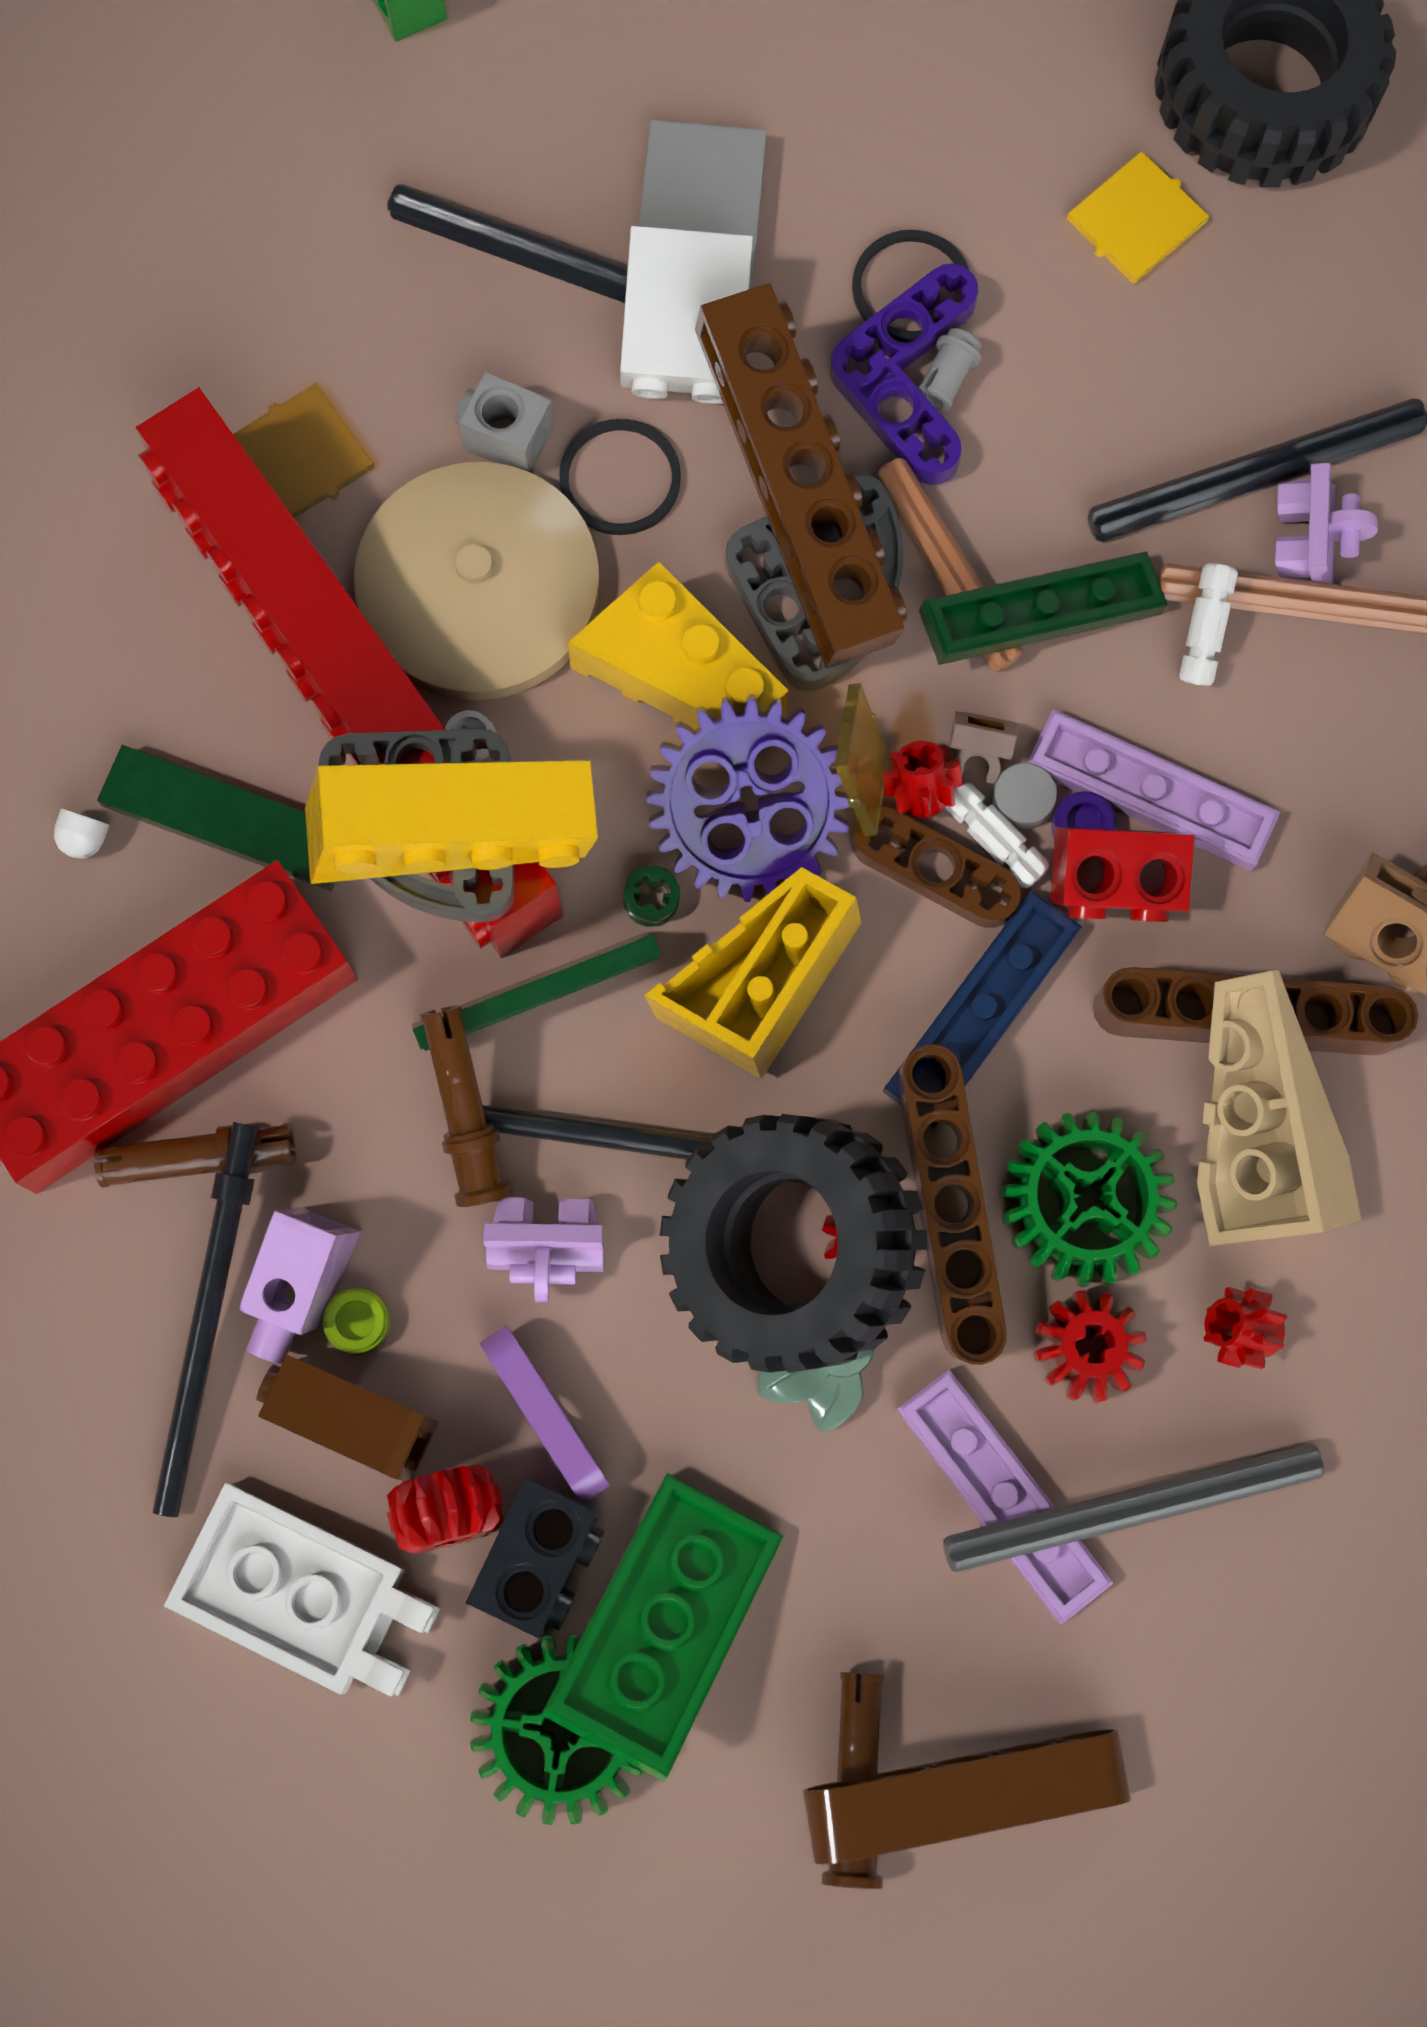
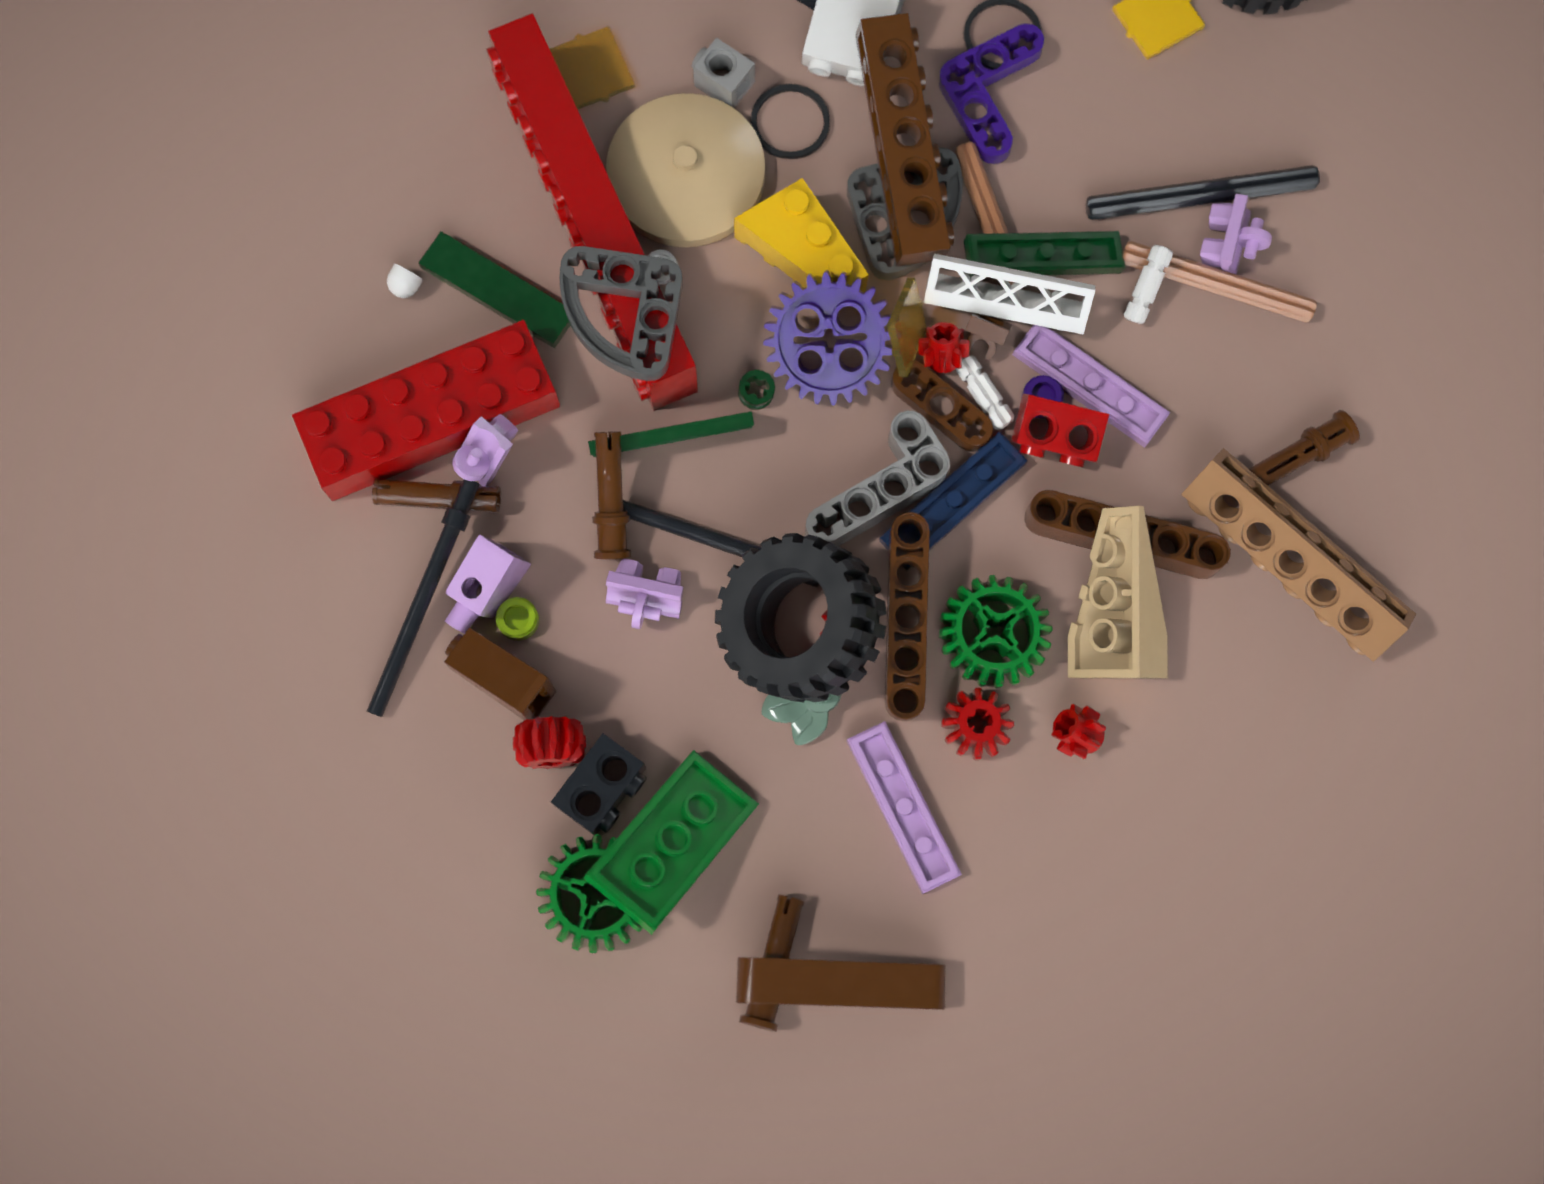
camera: 10 degrees right, 0 degrees up
(255, 1073) = (484, 449): none -> lavender hips
(296, 1594) = (446, 778): white tile -> none
(447, 817) = (634, 308): yellow wedge -> none
(544, 1414) = (623, 698): medium lavender beam -> none
(762, 974) = (816, 451): yellow wedge -> none
(859, 1018) = (871, 490): none -> light grey beam
(955, 356) = (1016, 90): light grey pin -> none
(1004, 689) = (1008, 300): none -> white fence
(1025, 795) = (1008, 371): light grey tile -> none
(1132, 1507) = (984, 829): dark grey axle -> none

